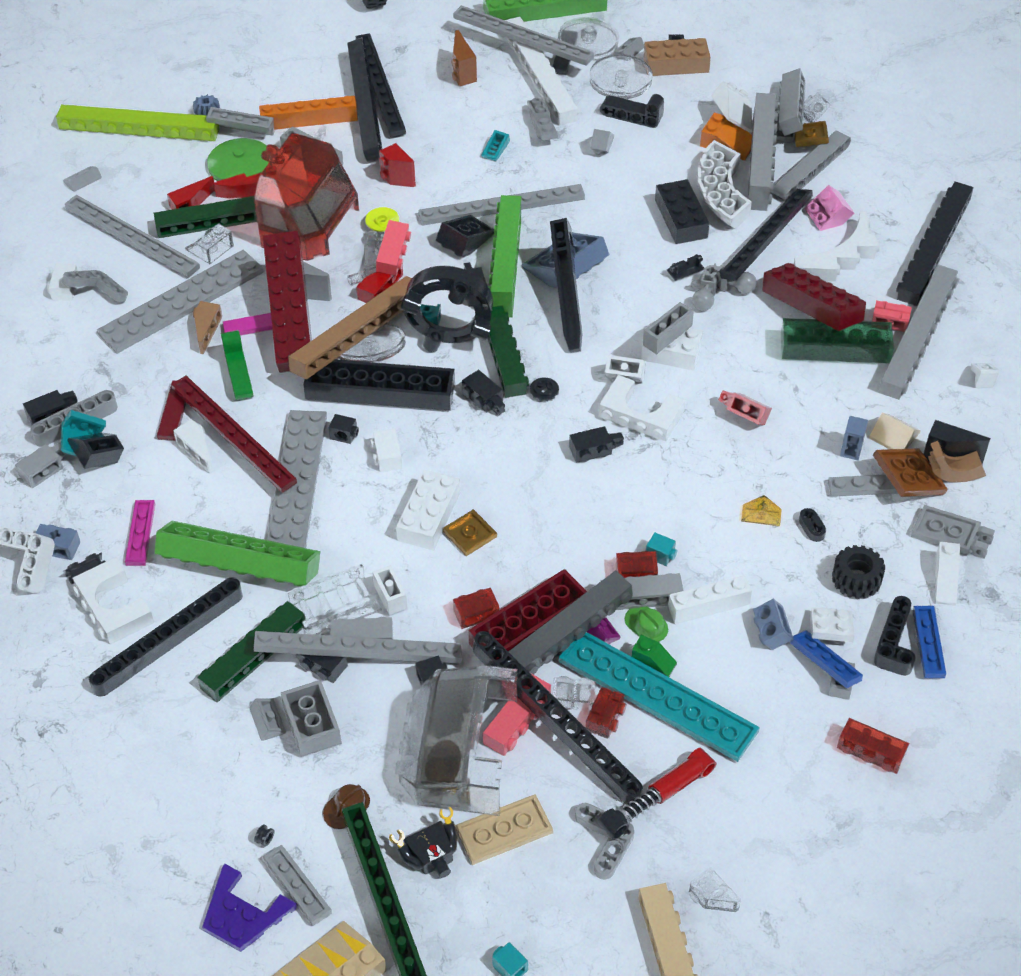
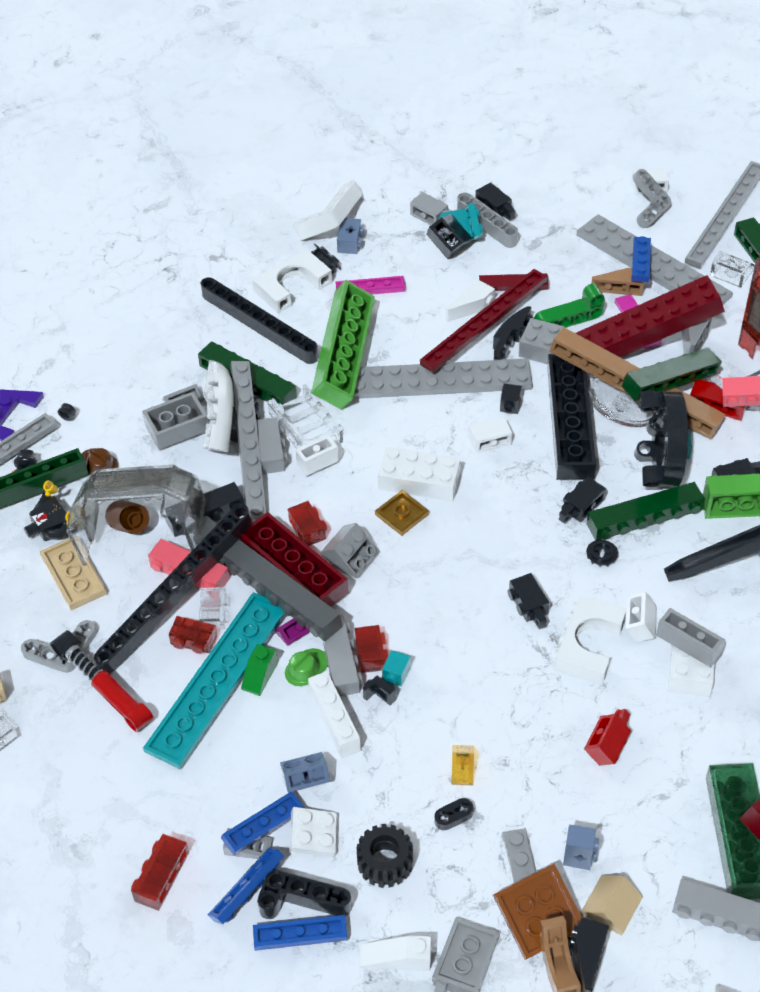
camera: 85 degrees right, 0 degrees up
(186, 300) = (641, 259): none -> blue plate
(248, 417) = (510, 331): none -> black slope
(272, 395) = (538, 340): none -> light grey brick
(311, 661) = (219, 408): none -> white brick
(336, 877) = (24, 459): none -> black animal
(362, 294) = (672, 373): none -> brick
(515, 573) = (350, 550): none -> light grey slope
(682, 563) = (381, 688): none -> black bracket
(887, 677) = (245, 886): none -> blue plate

